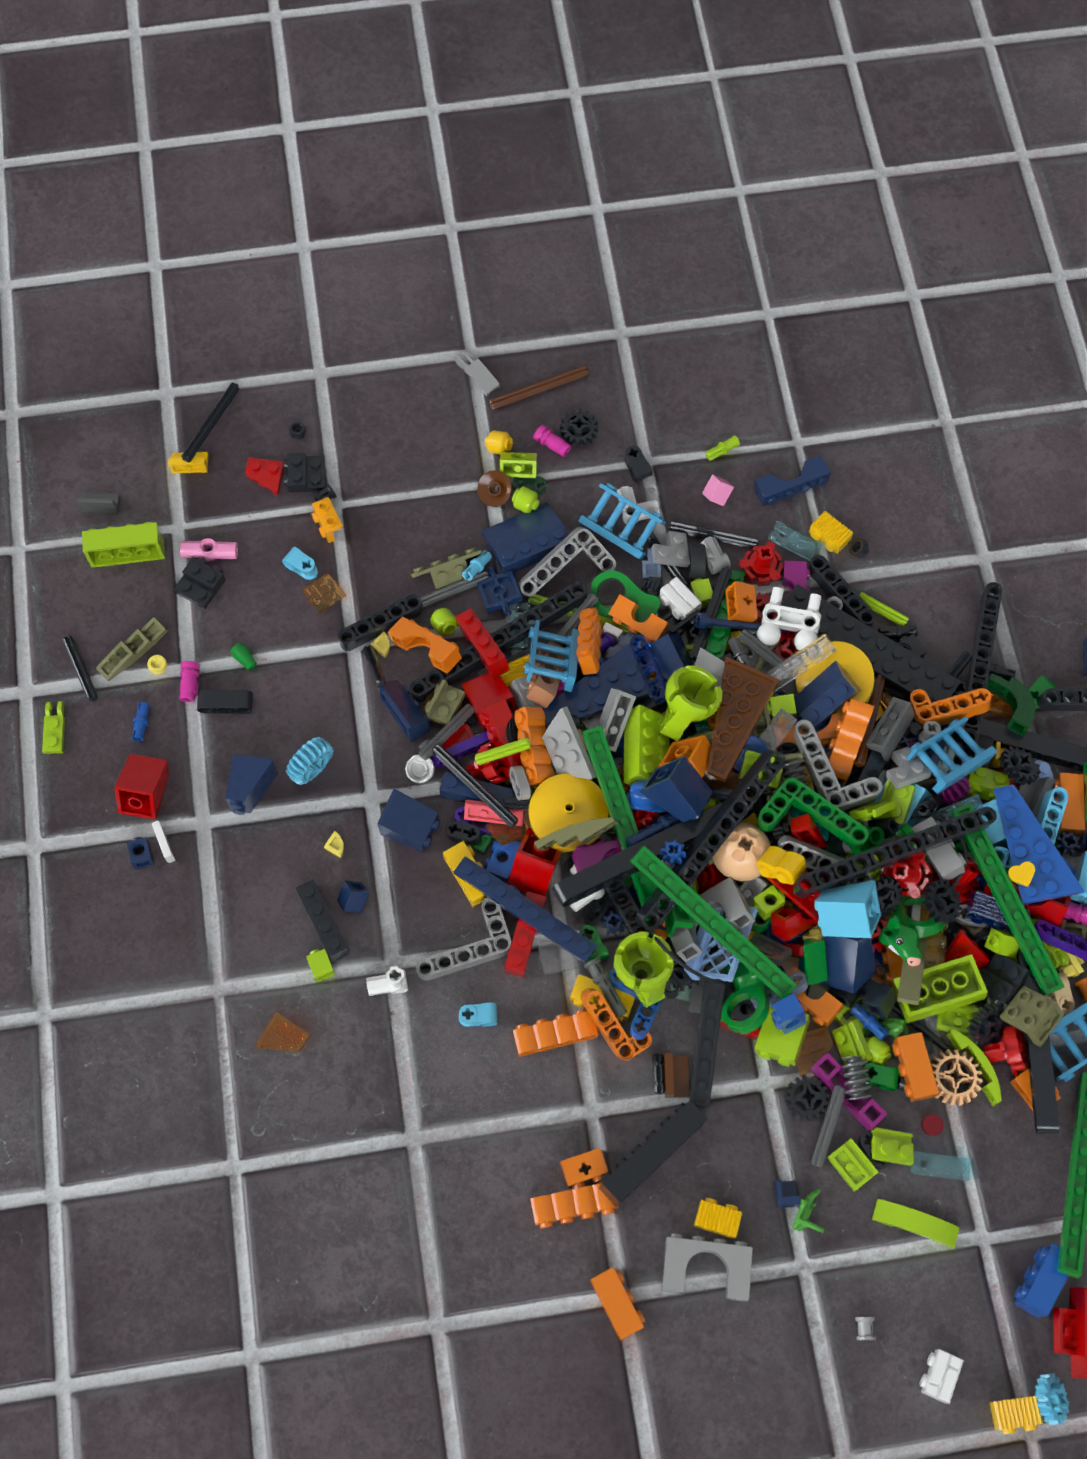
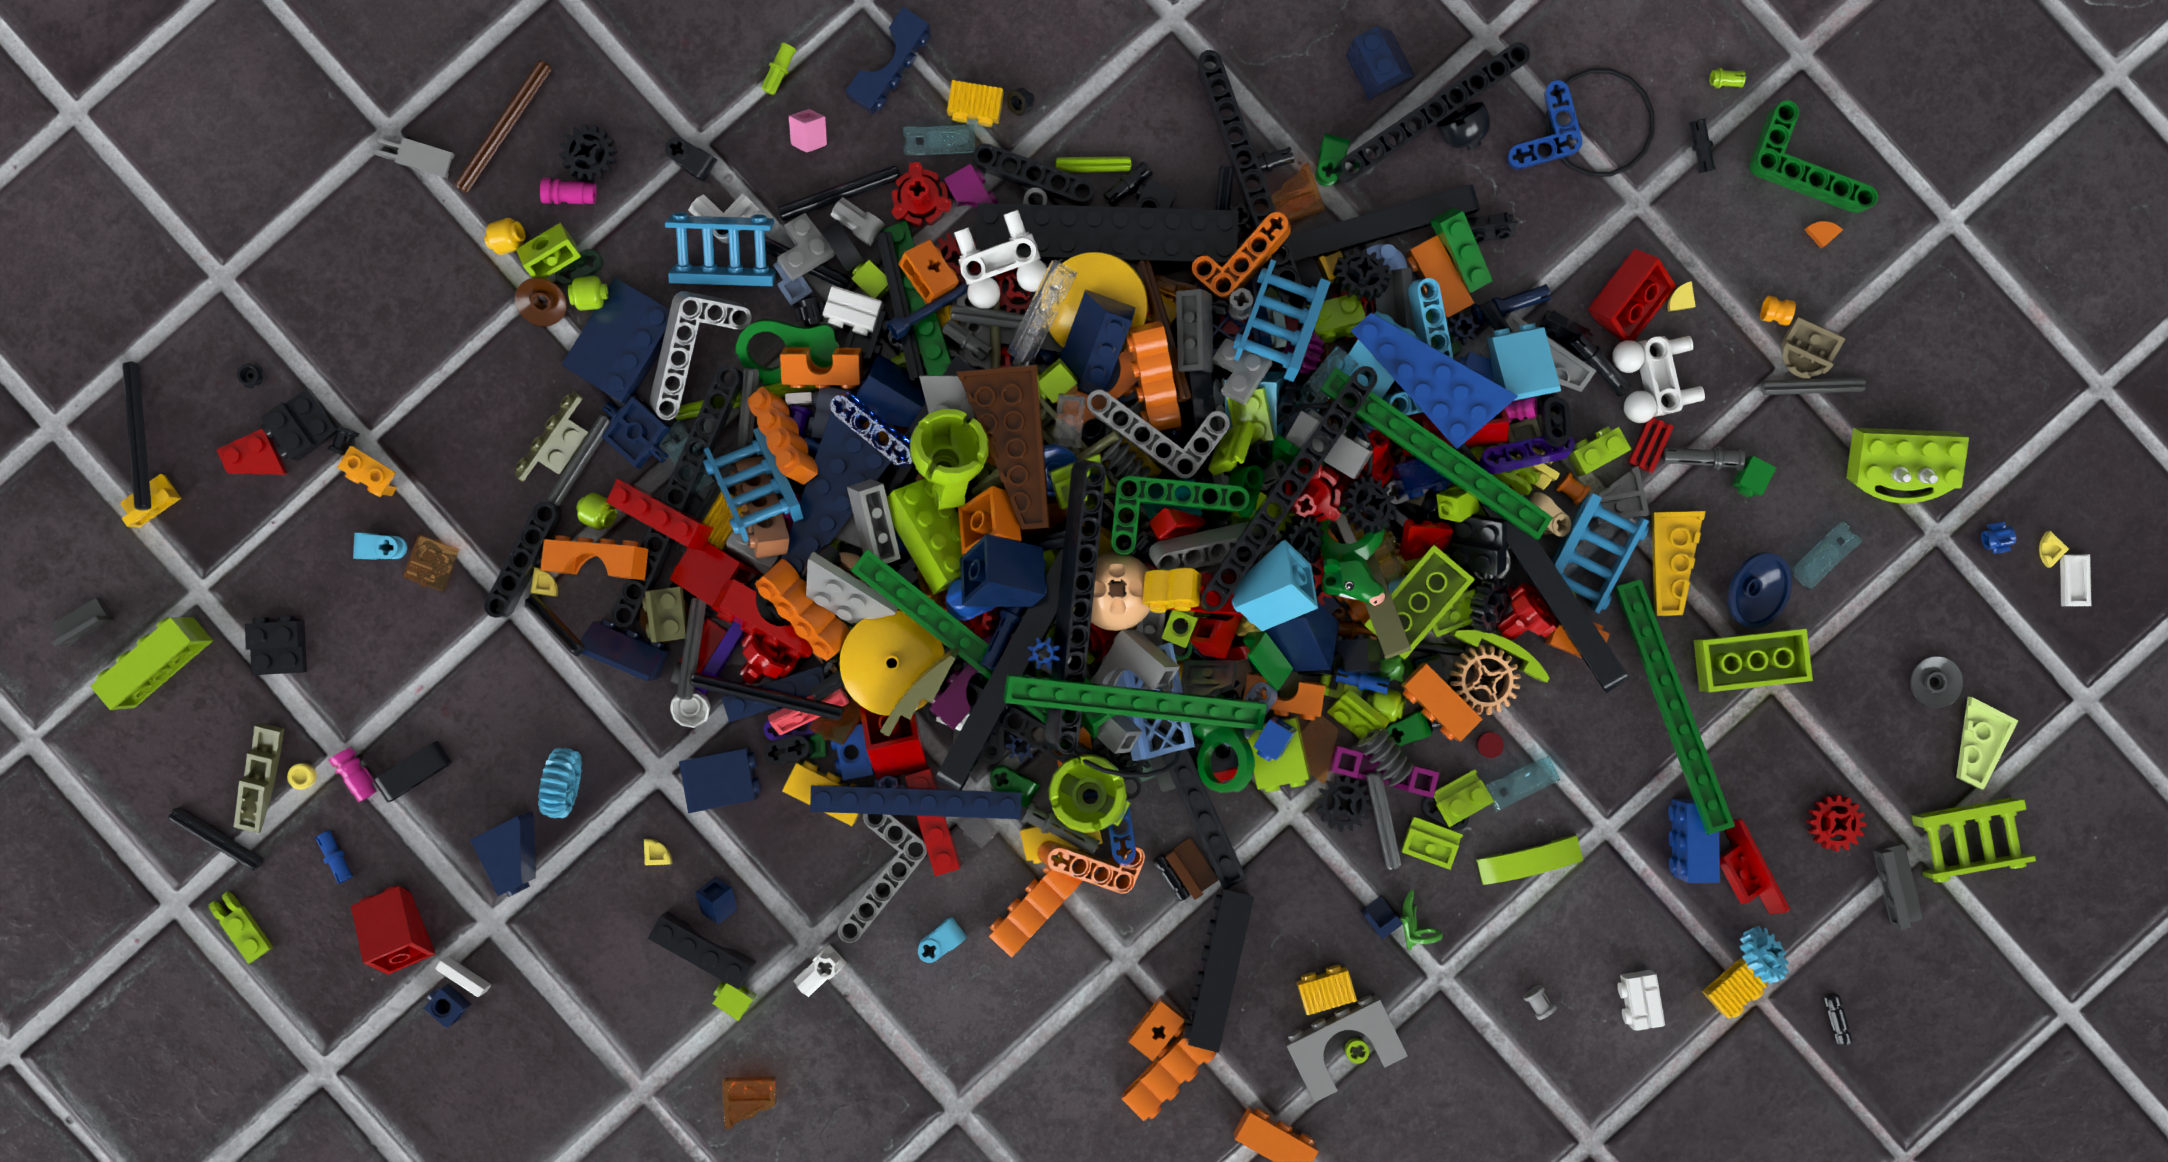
camera: 35 degrees left, 20 degrees up
(219, 550) = (244, 606): bright pink piece -> none
(242, 654) = (394, 703): green cone -> none
(476, 565) = (587, 416): medium azure pin -> none
(503, 751) = (773, 643): lime axle -> none
(520, 783) = (816, 664): light grey beam -> none
(715, 1271) = (1355, 1042): none -> lime bush
(1019, 700) = (1318, 189): dark green arch -> none
(1022, 874) = (1440, 417): yellow tile -> none
(1033, 1014) = (1534, 570): olive bracket -> none

